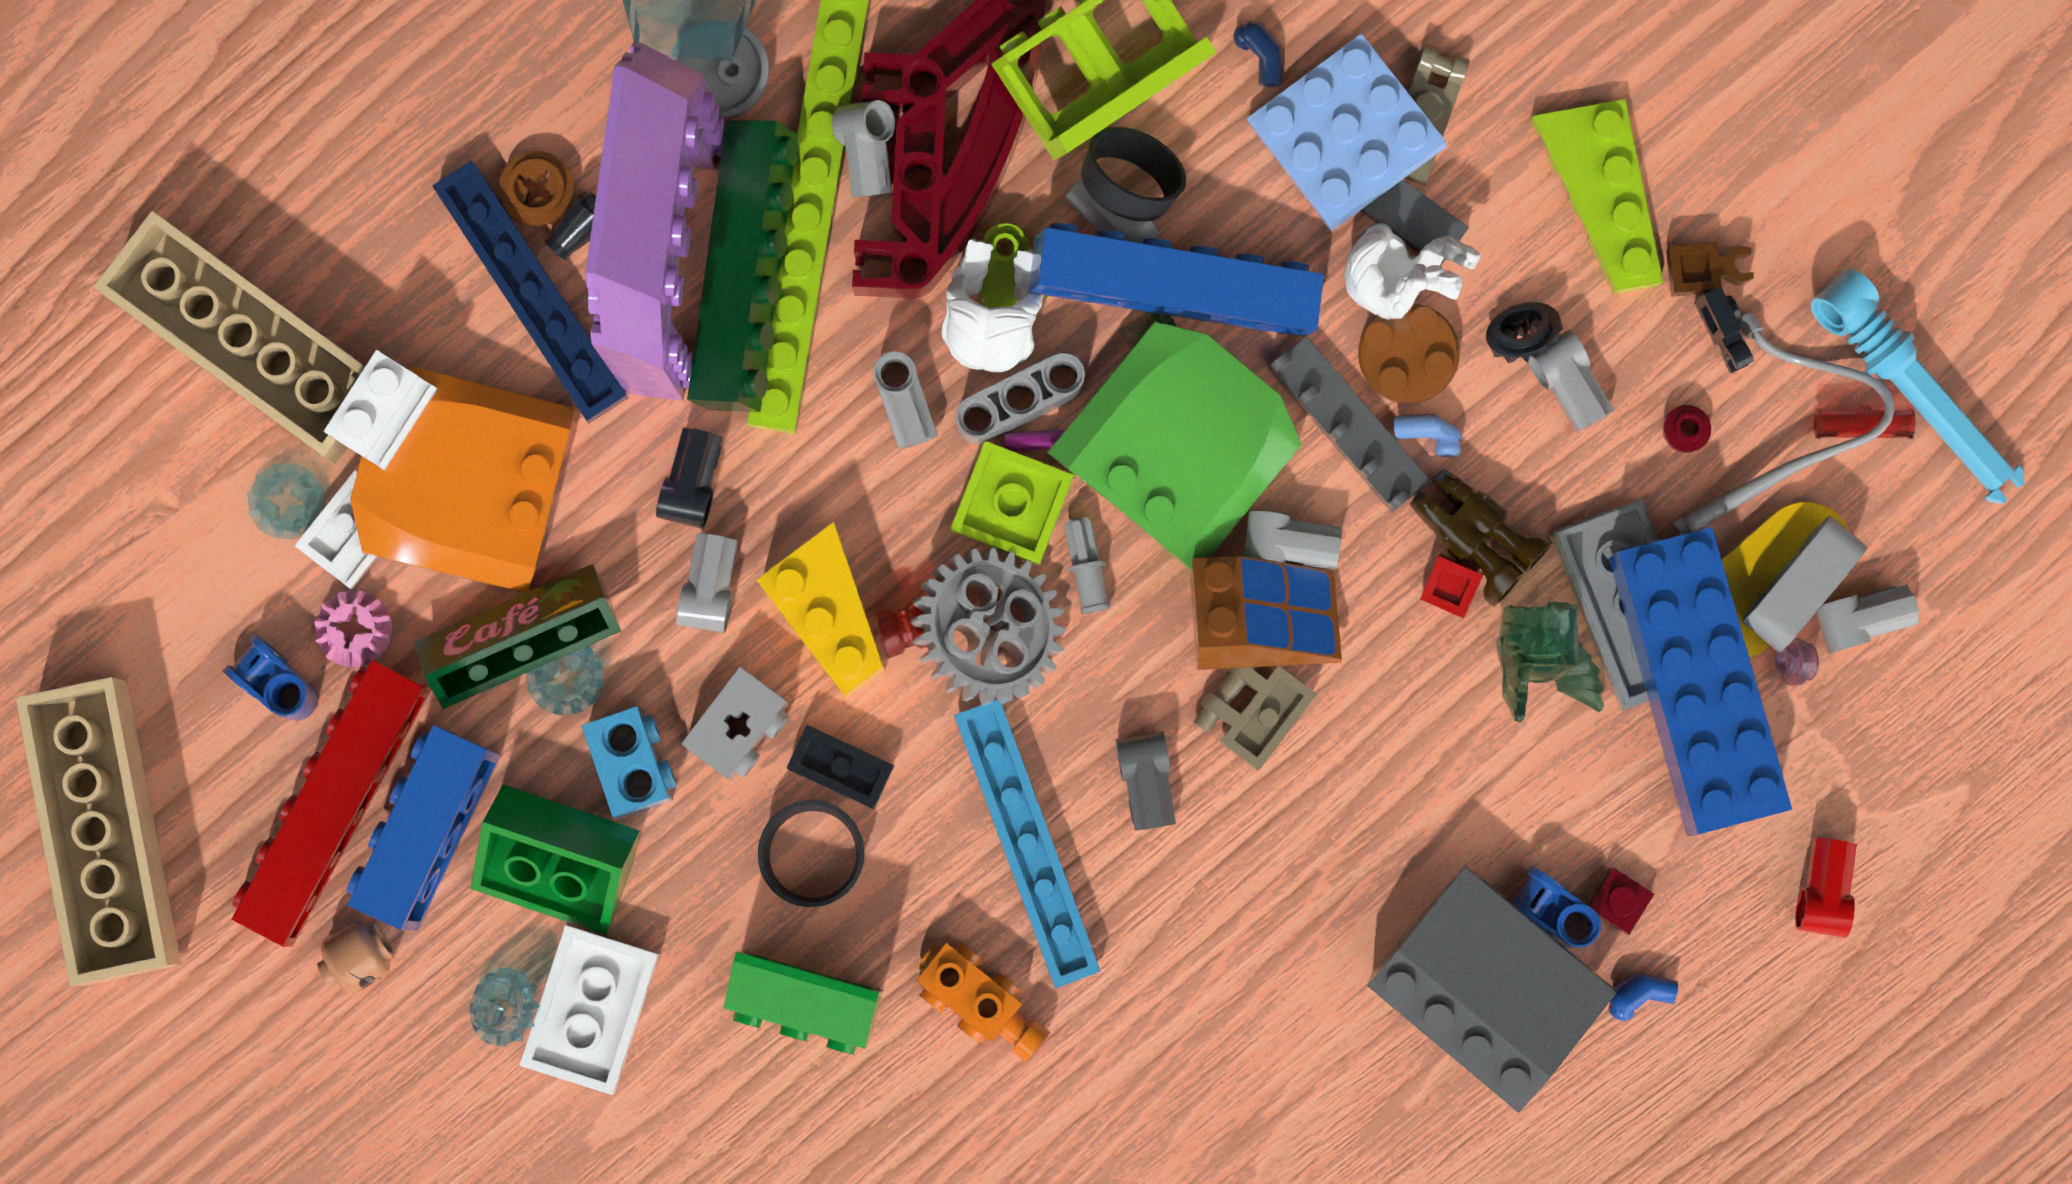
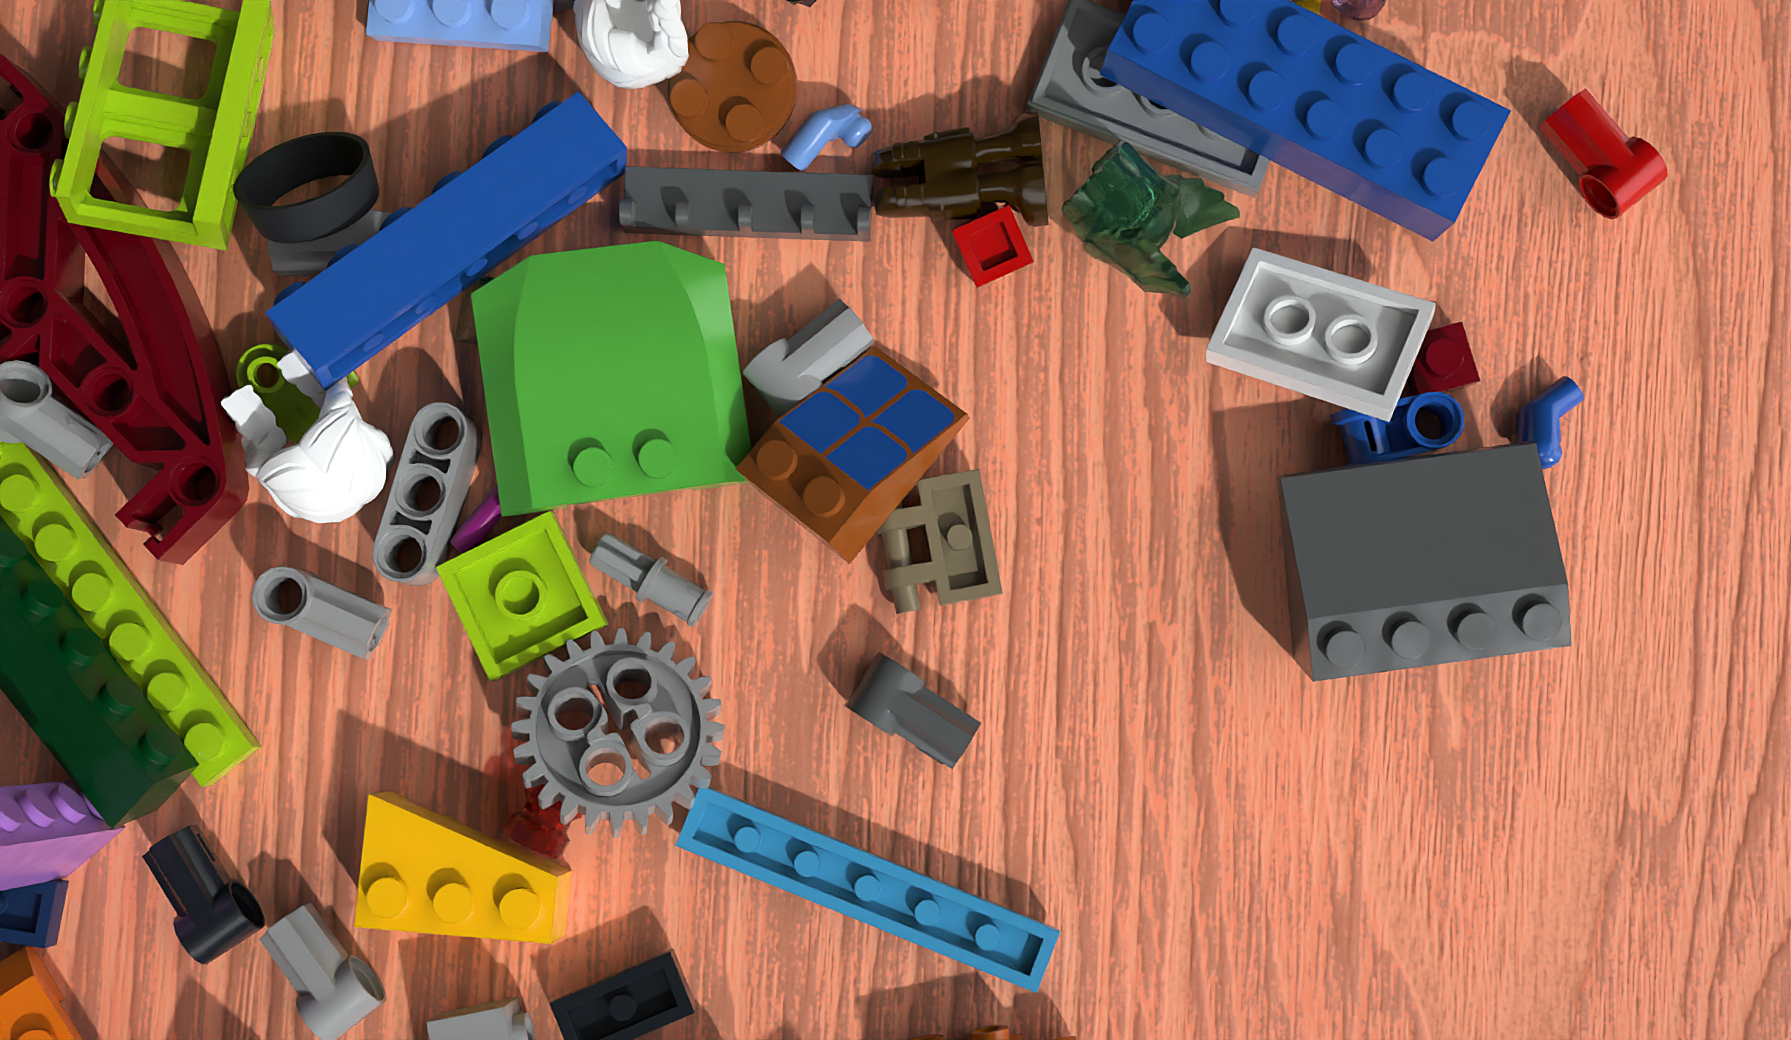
camera: 40 degrees left, 0 degrees up
(1570, 817) = (1320, 333): none -> white plate

